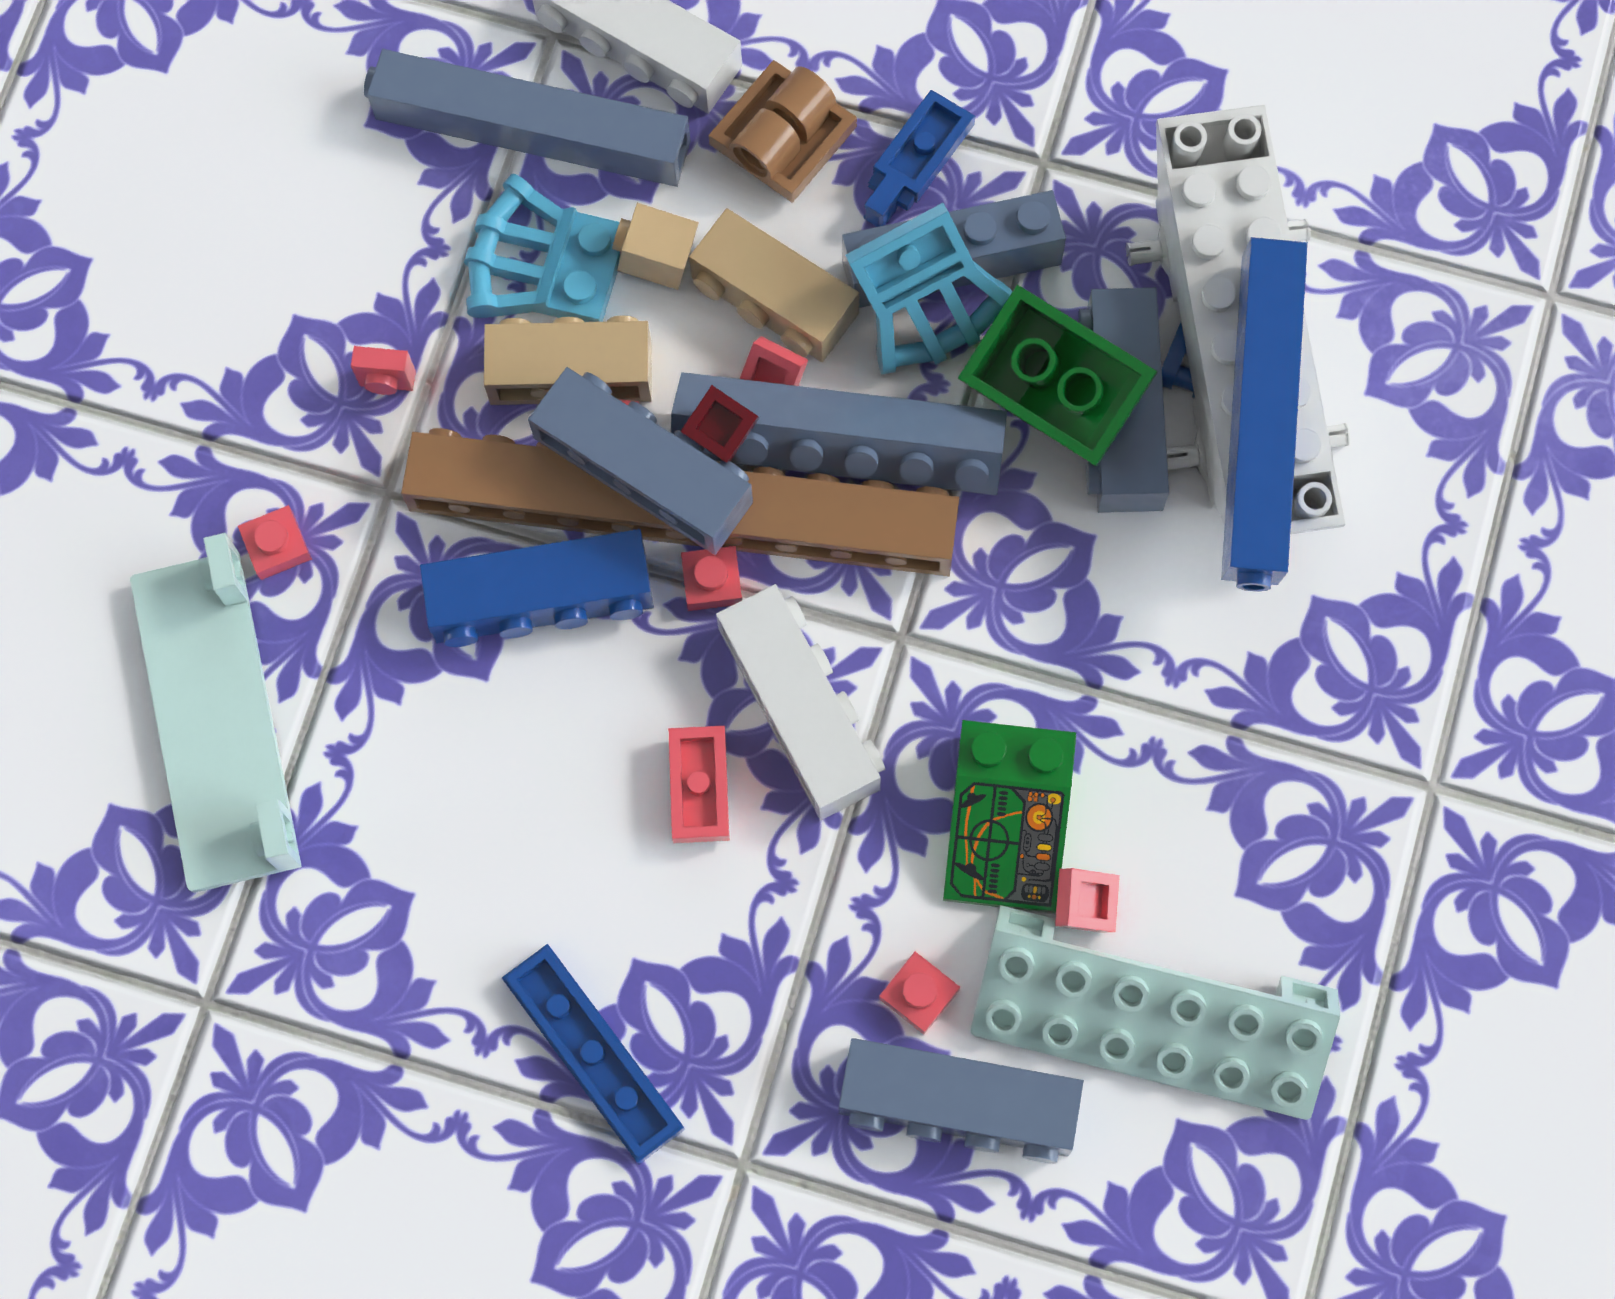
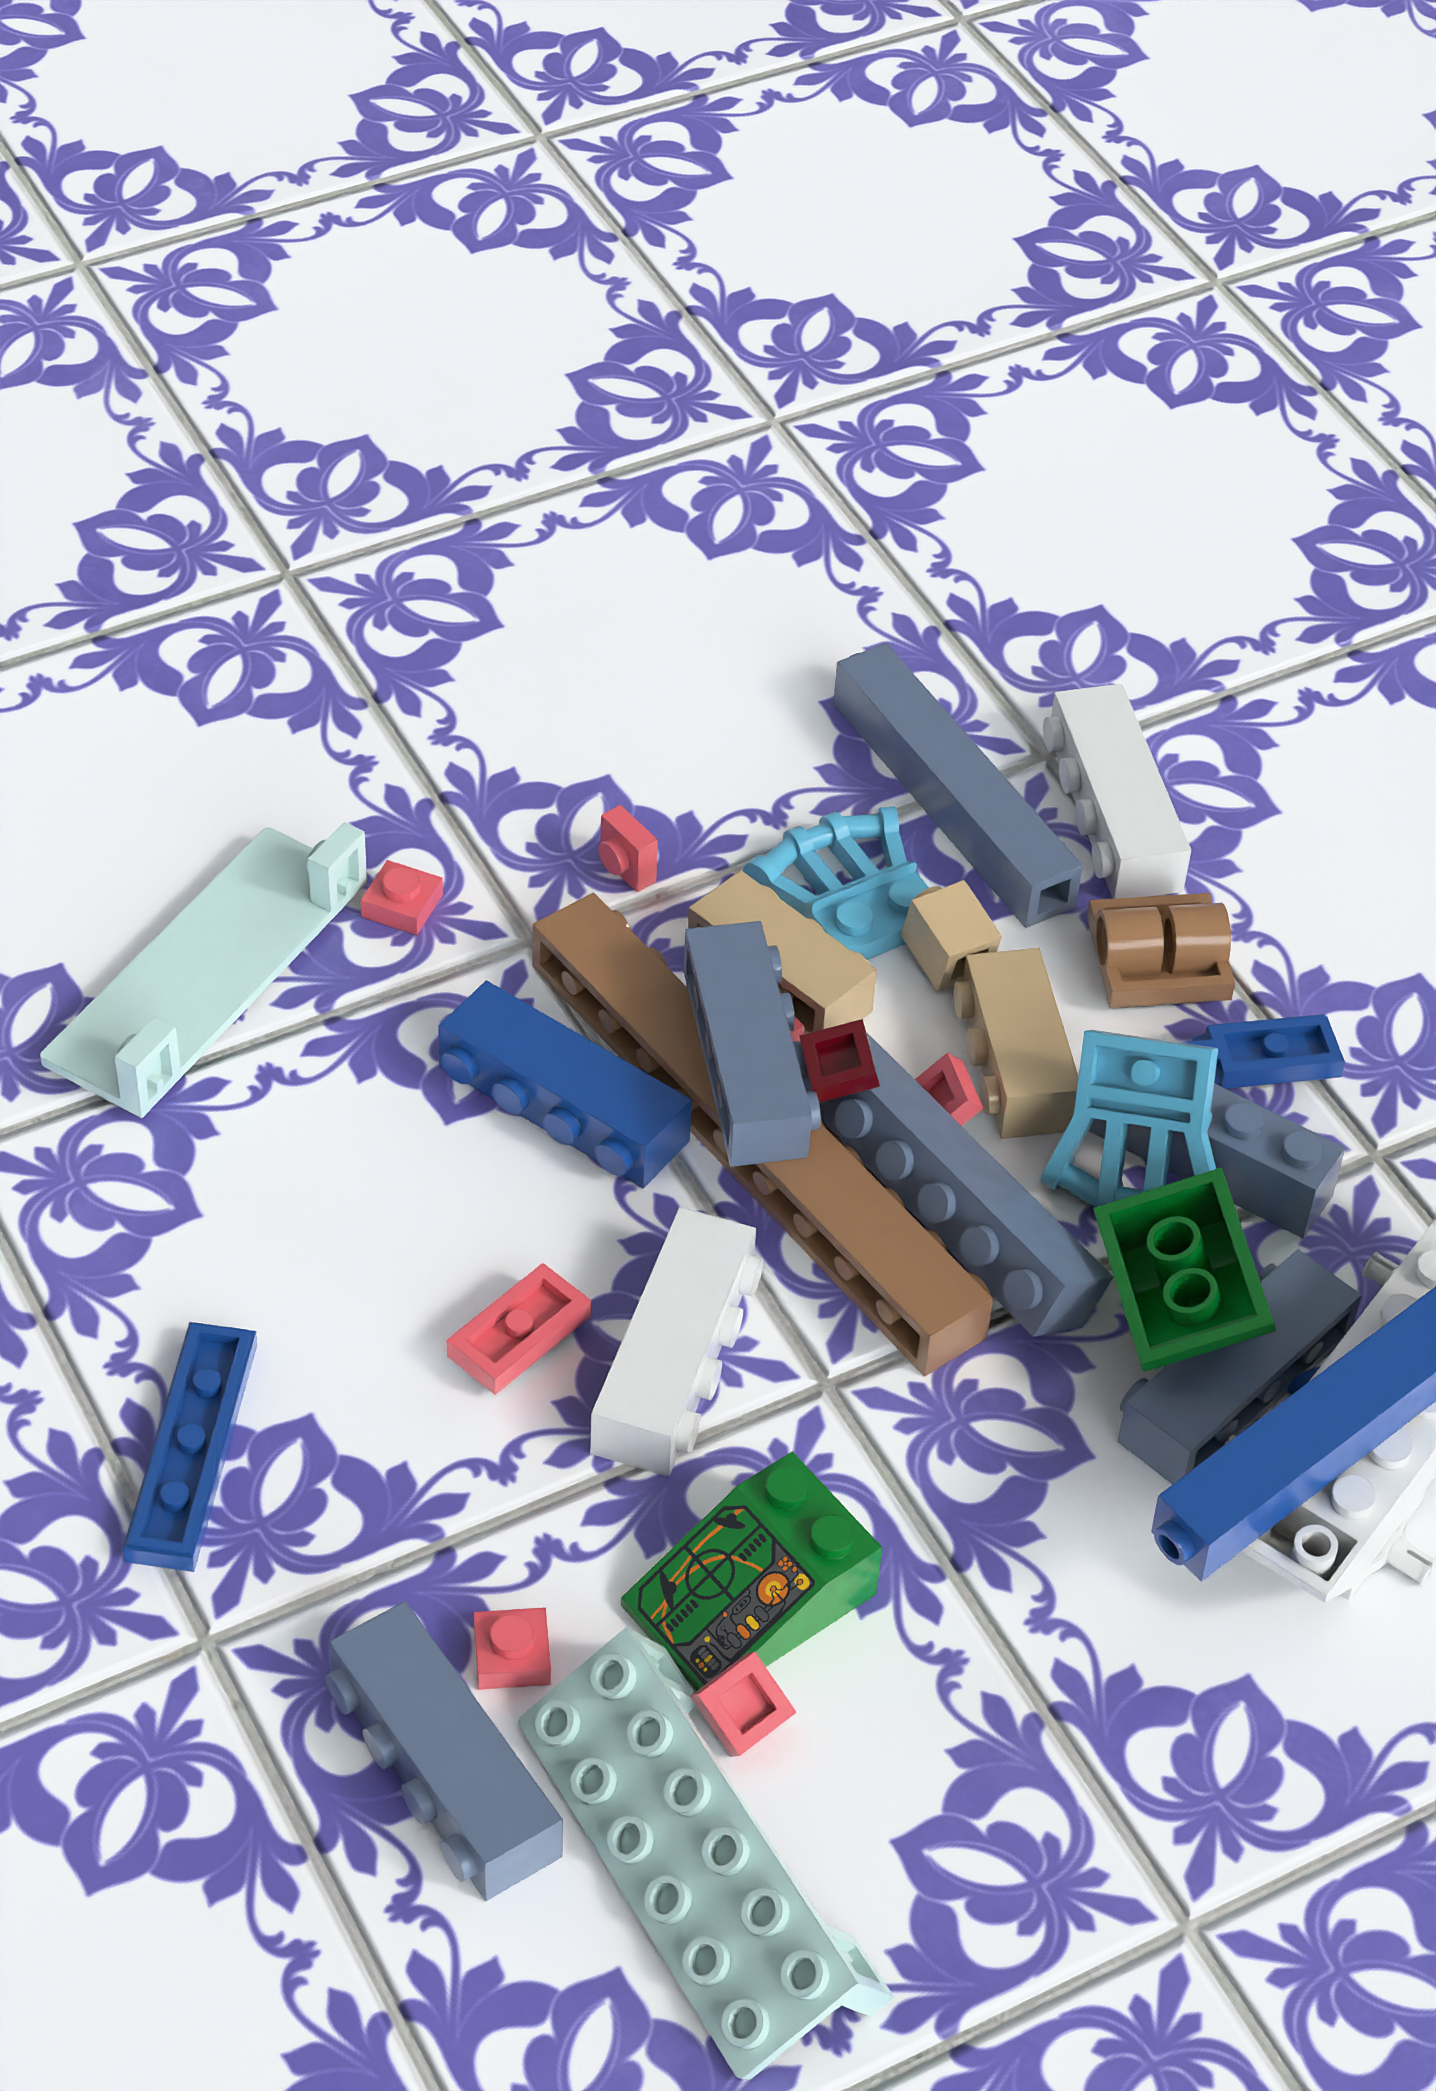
camera: 40 degrees right, 25 degrees down
(711, 578) = (717, 1193): coral plate -> none

